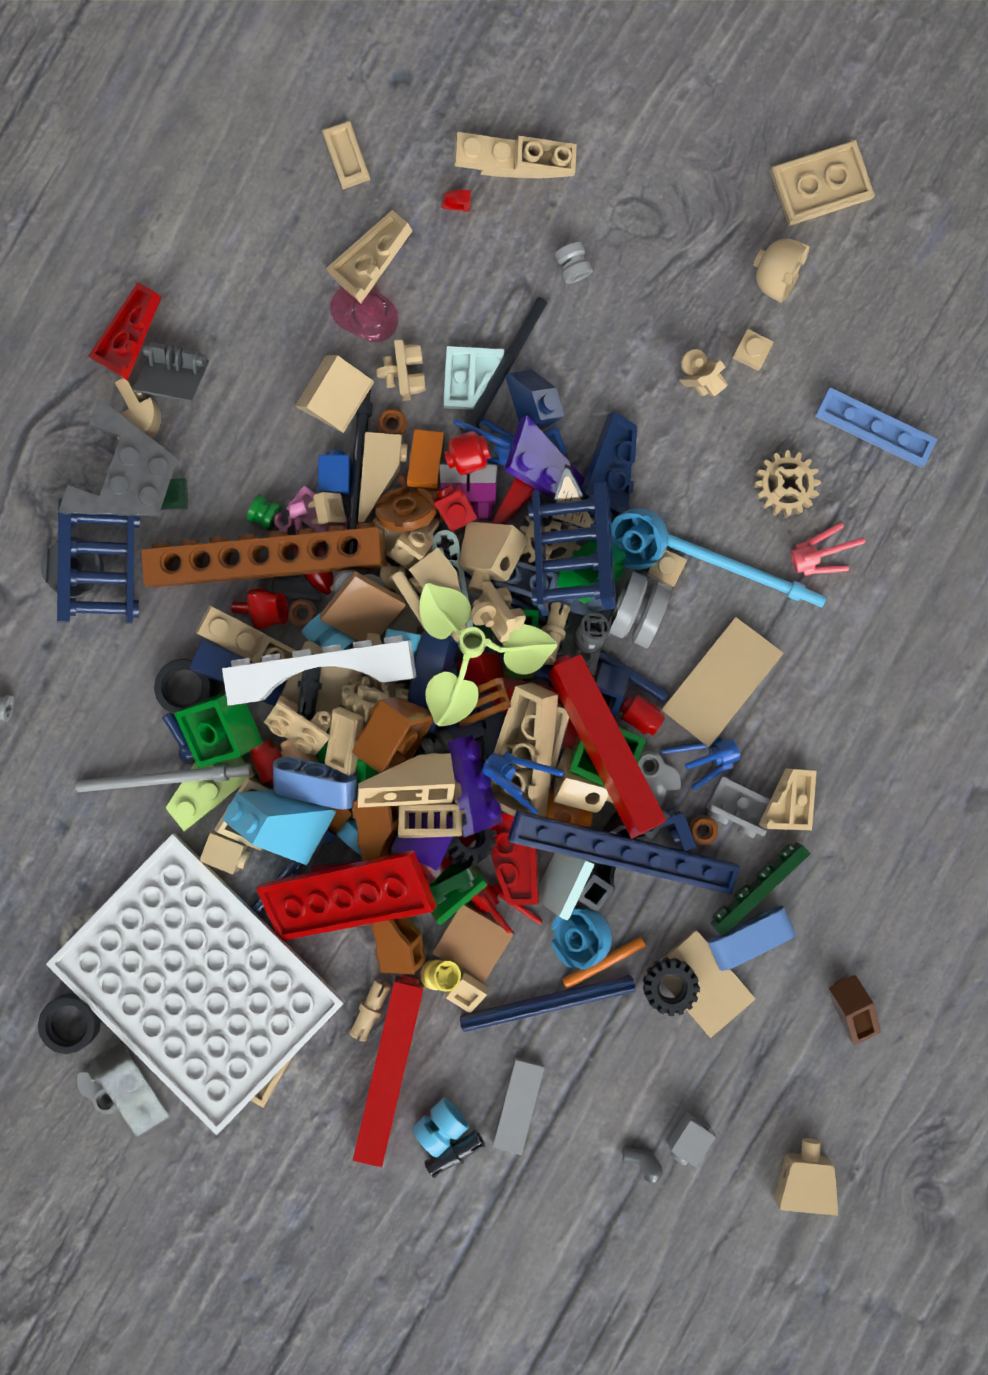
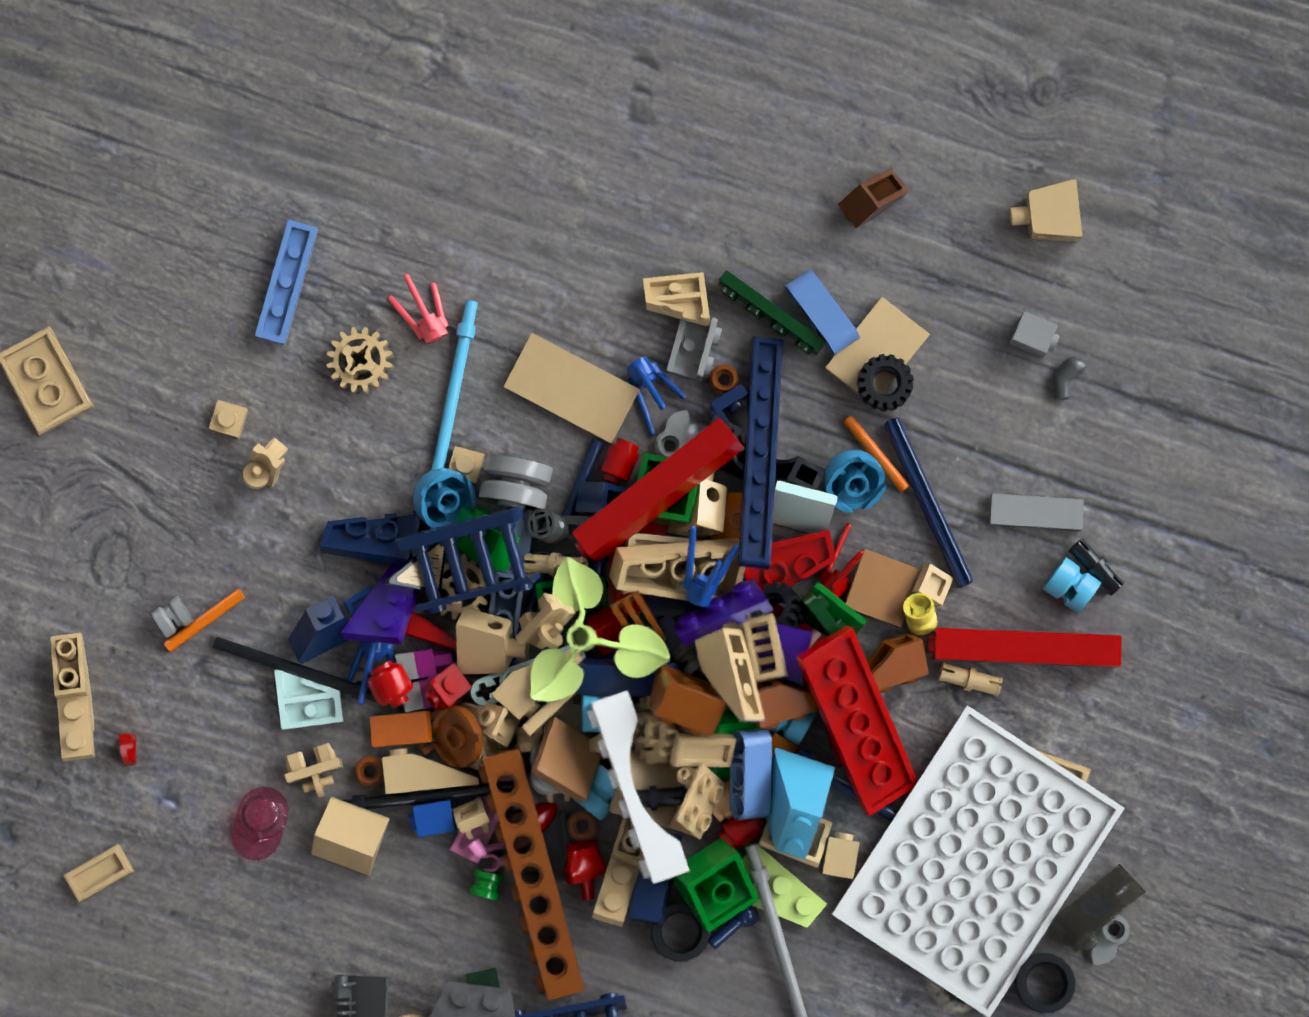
camera: 105 degrees left, 5 degrees down
(370, 255) = (202, 826): tan wing -> none
(565, 294) = (204, 620): none -> orange bar
(780, 267) = (143, 407): tan cylinder -> none

